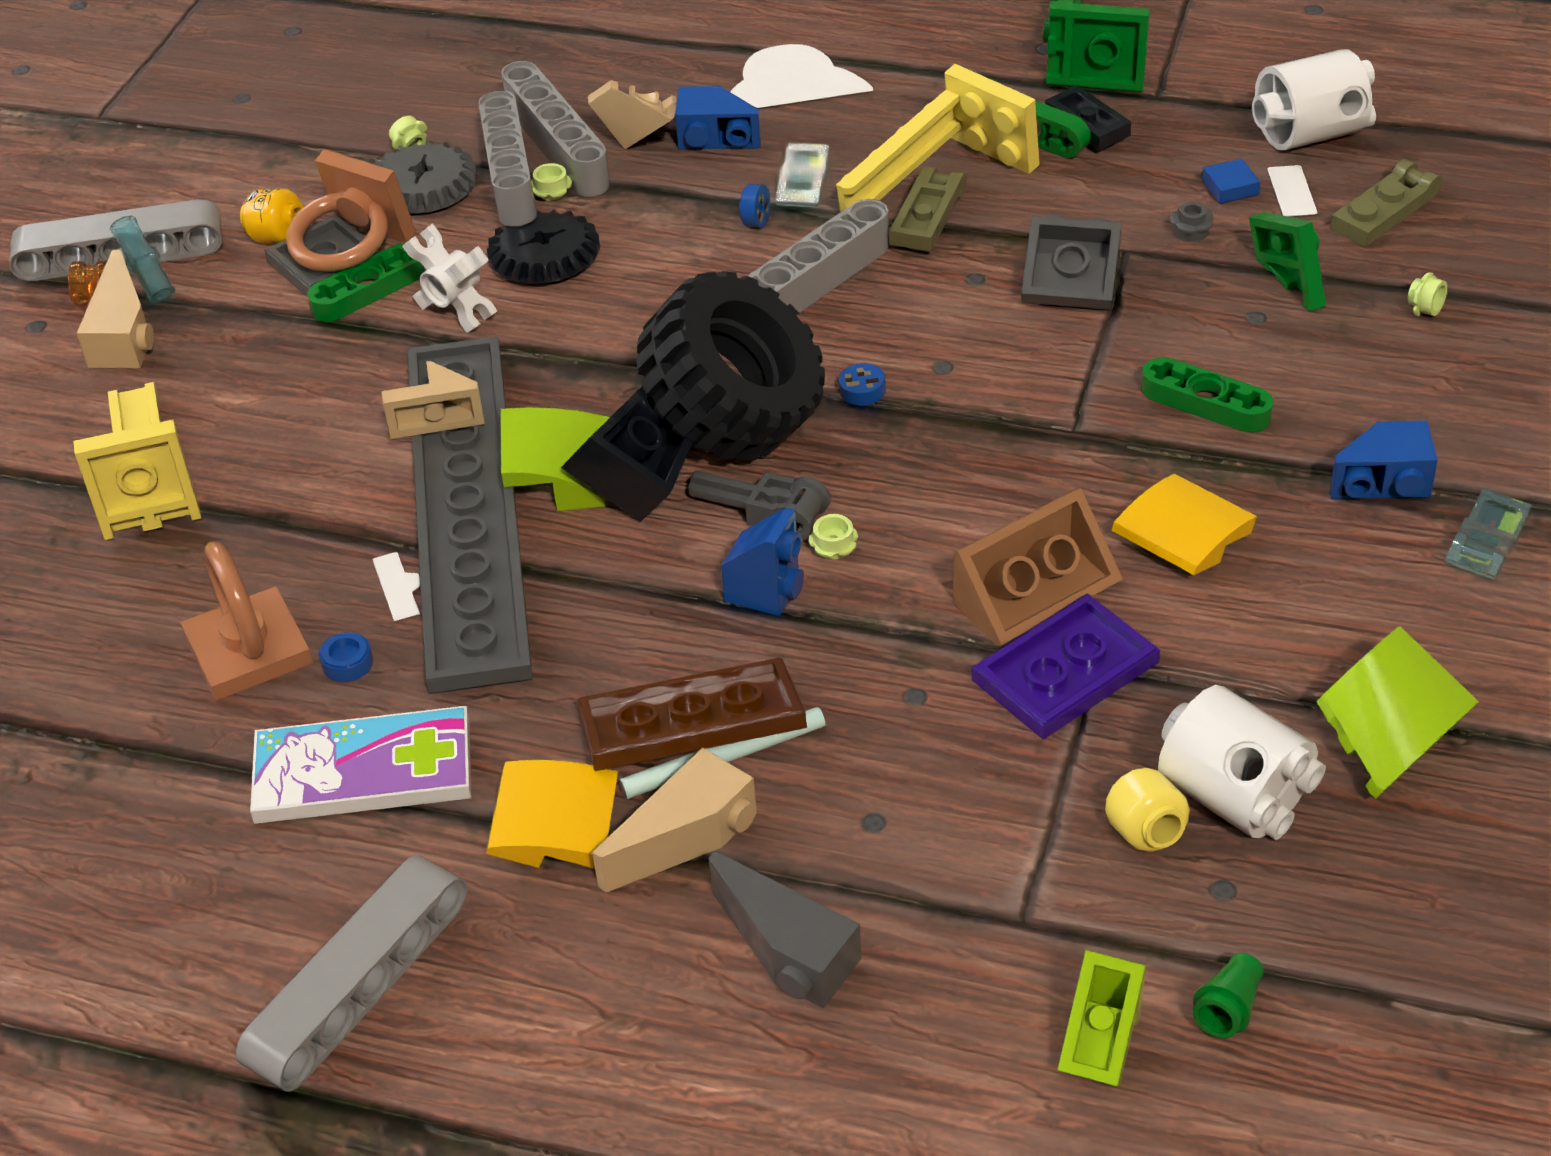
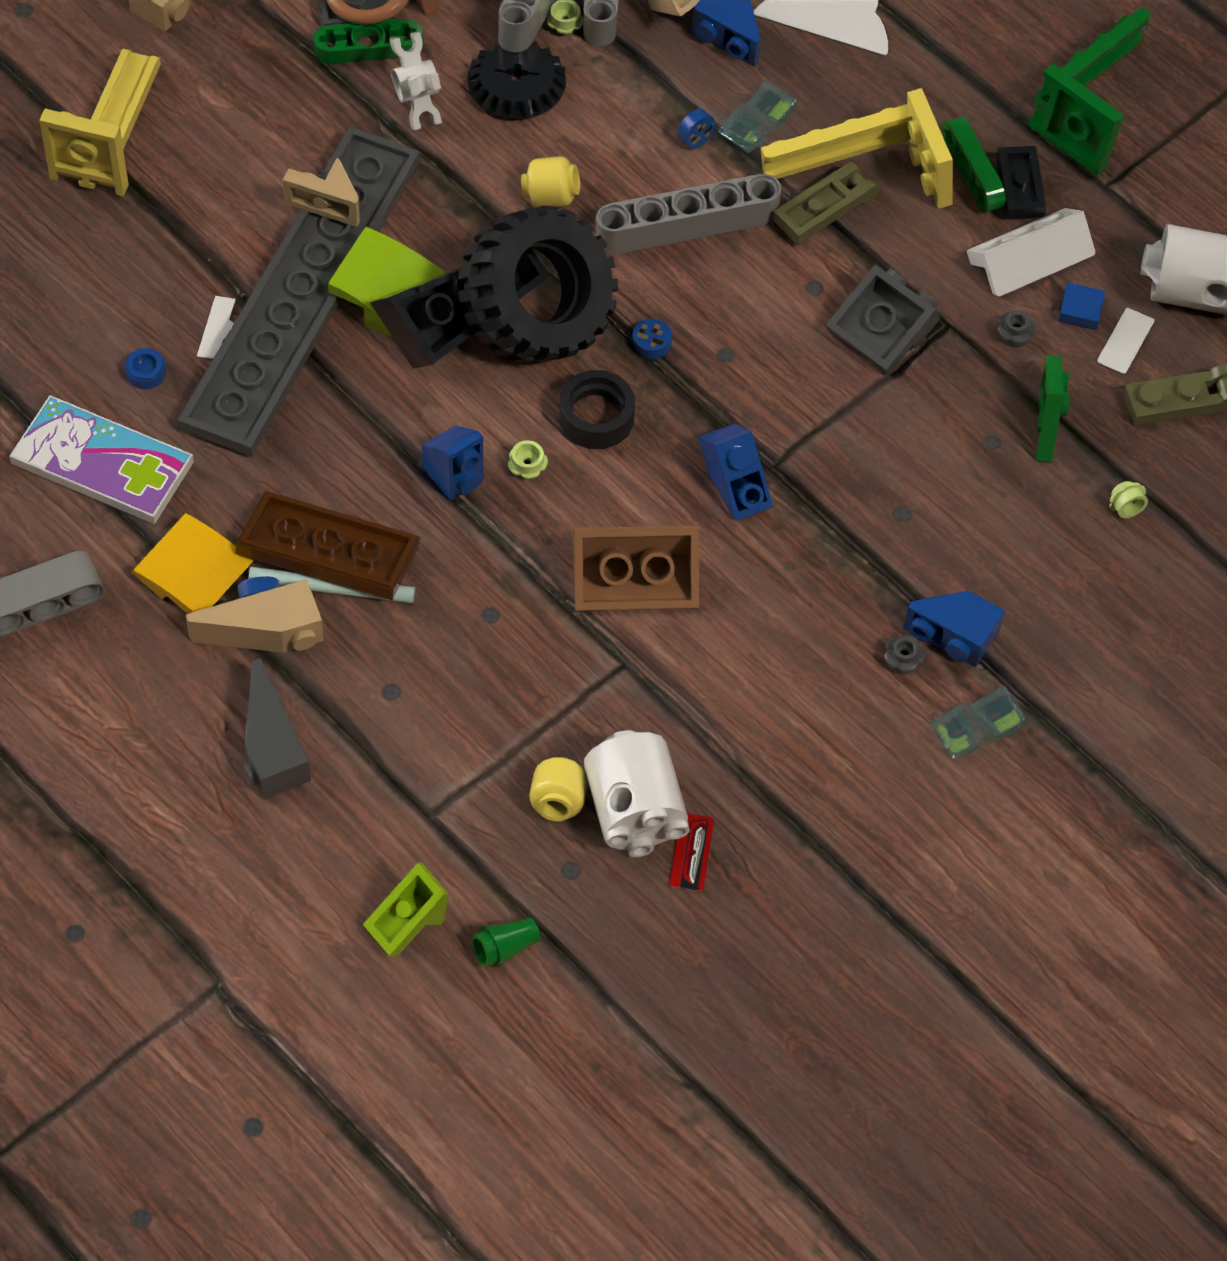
camera: 25 degrees right, 15 degrees up
(246, 636) = (89, 315): nougat tile -> none
(645, 297) = (551, 182): none -> light yellow head
(645, 788) = (257, 585): none -> blue tile
(767, 497) = (504, 406): dark grey connector -> none
(869, 485) = (598, 384): none -> black tyre
(1051, 441) = (736, 470): none -> blue slope
(1065, 665) = (604, 651): dark purple tile -> none
(1149, 158) = (1034, 250): none -> white panel
(1165, 382) = (888, 508): green beam -> none
(1183, 523) = (774, 589): yellow slope -> none
(1338, 810) = (692, 854): none -> sticker
(1359, 516) = (904, 663): none -> dark grey plate
(1394, 707) = (782, 813): lime slope -> none

